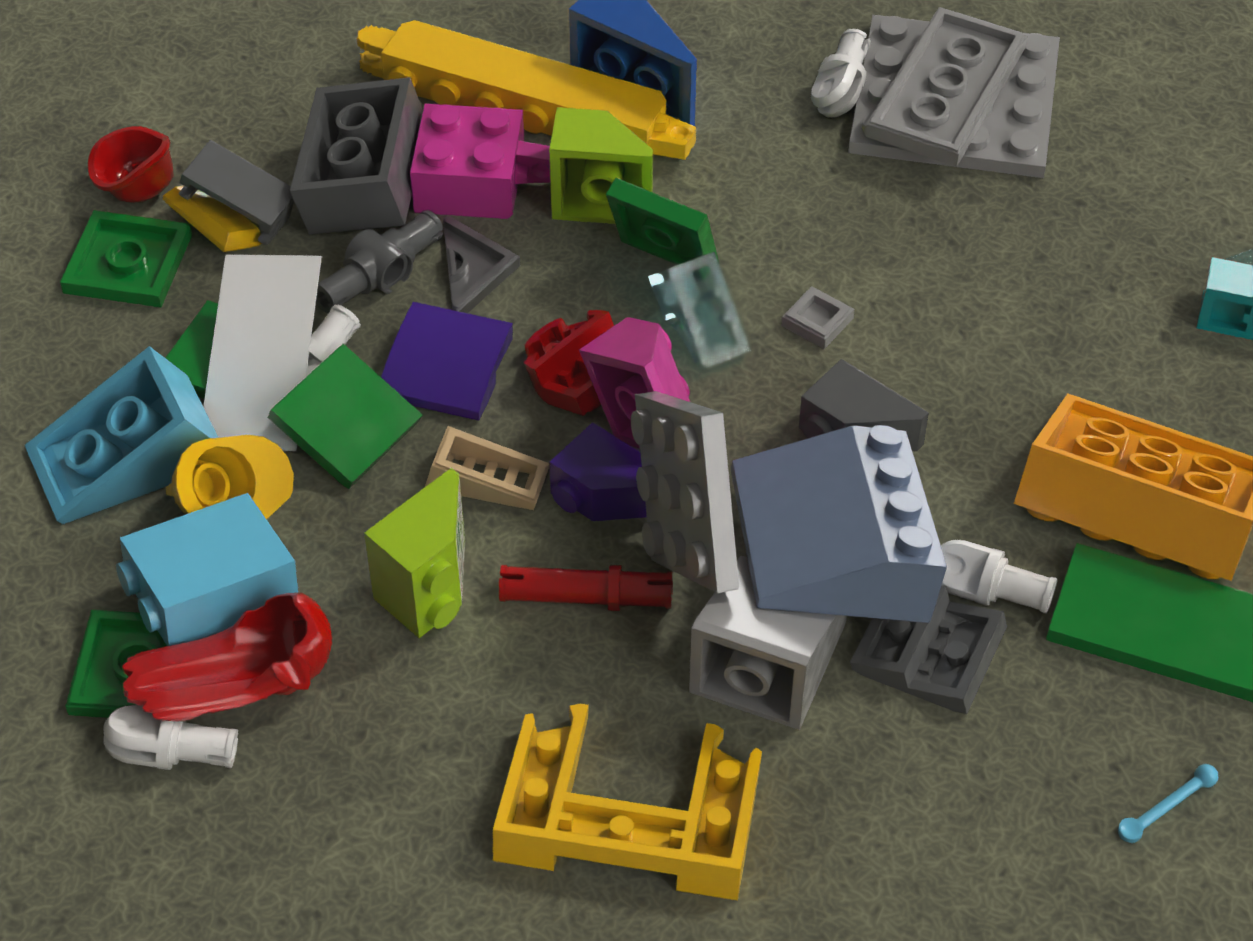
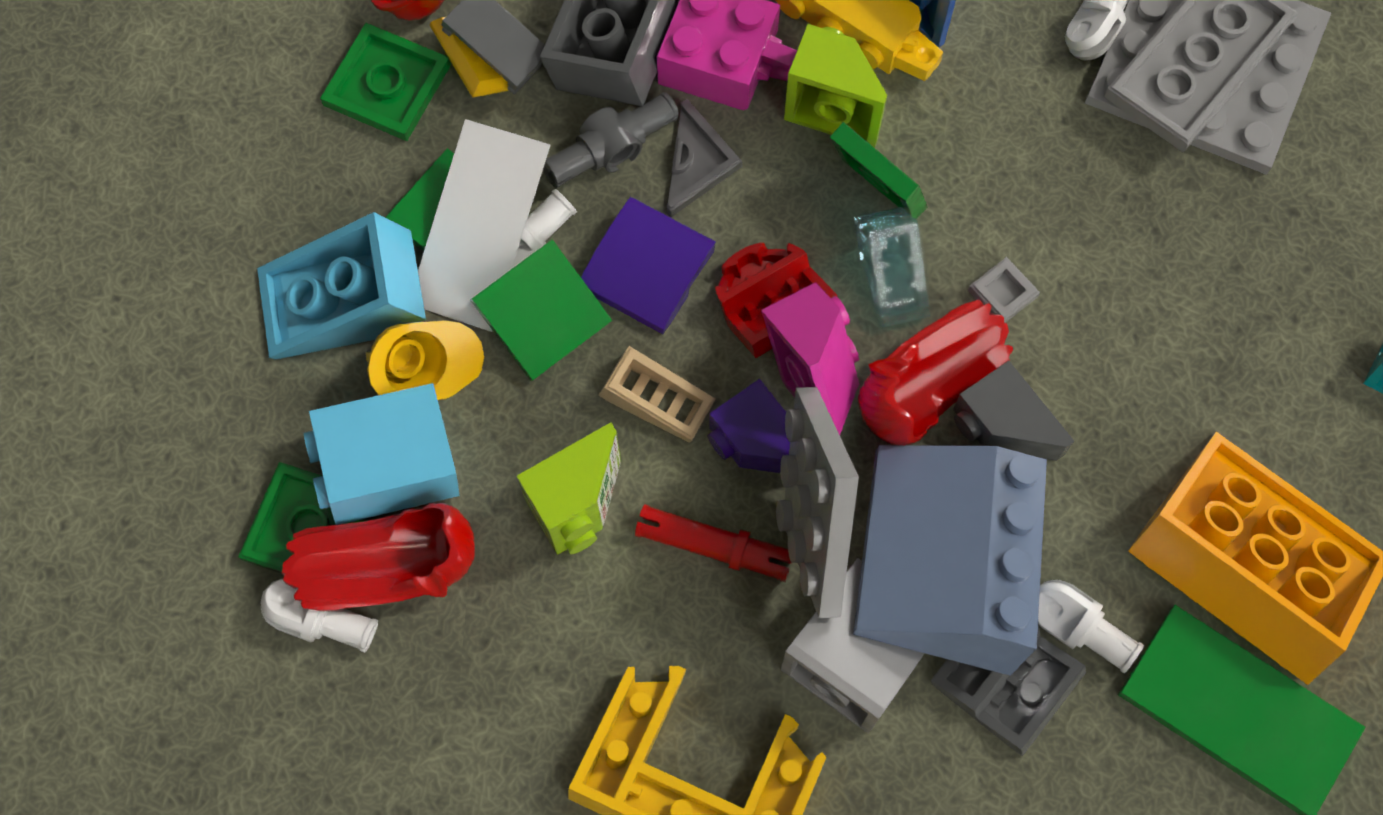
camera: 15 degrees right, 20 degrees up
(766, 382) = (931, 371): none -> red hair

